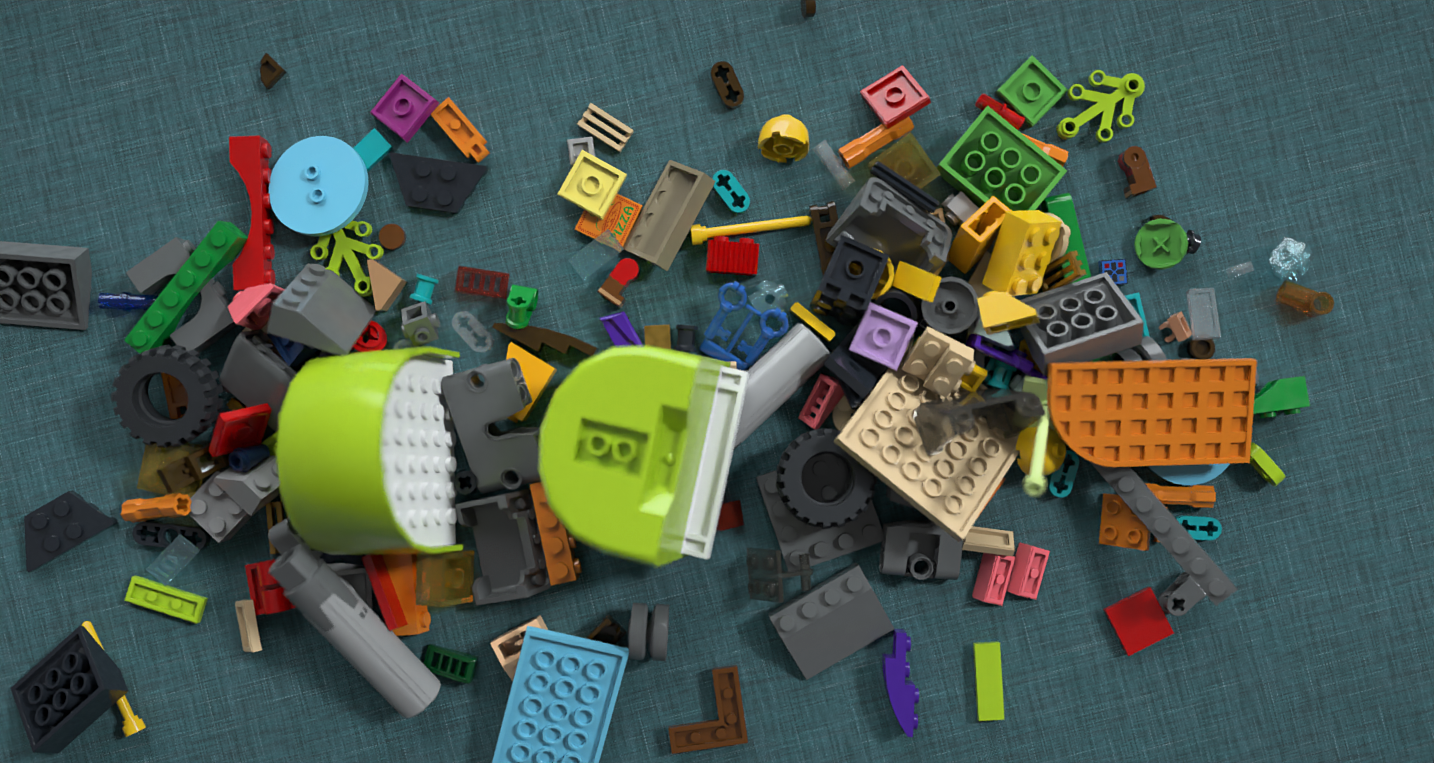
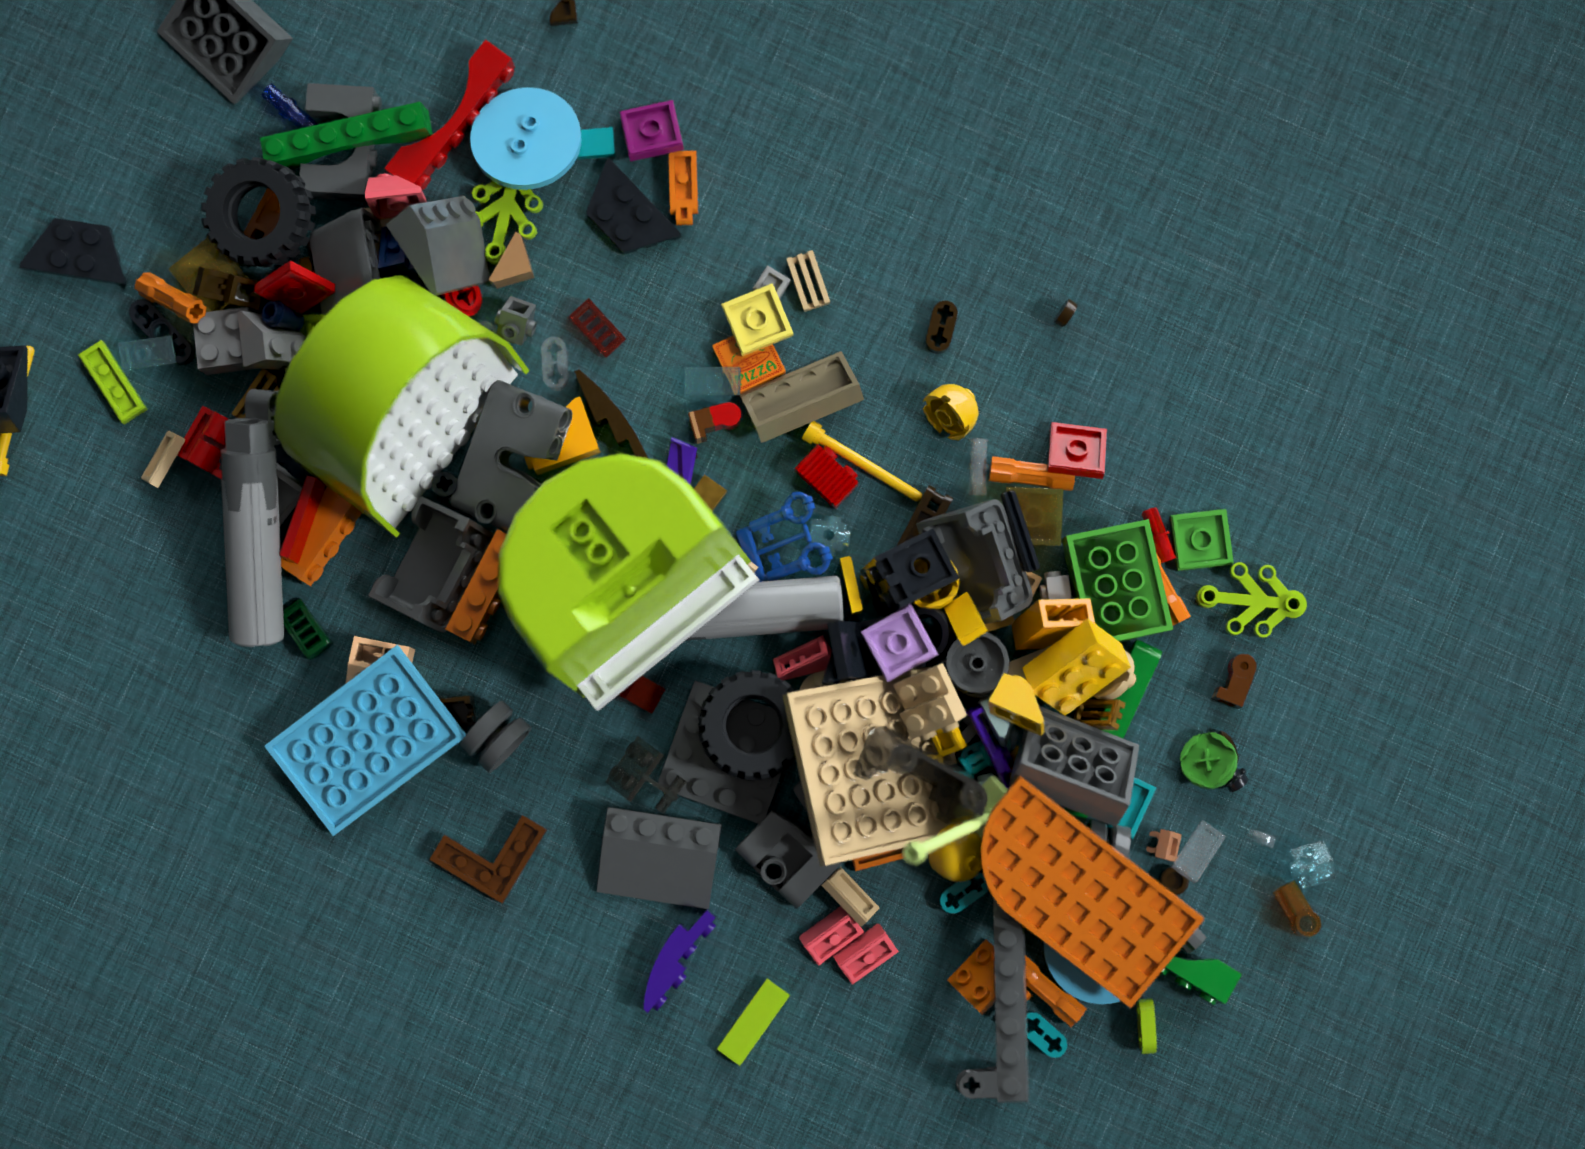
camera: 40 degrees right, 5 degrees down
(392, 236) = (553, 229): reddish brown tile -> none
(424, 288) = (543, 294): teal bush -> none
(444, 578) = (361, 549): clear yellow brick -> none
(521, 304) = (614, 373): green piece -> none
(686, 338) = (732, 513): black bush -> none
(735, 187) = (864, 420): teal beam -> none
(1116, 270) = (1150, 752): tile -> none
(1138, 621) = (927, 1076): red tile -> none

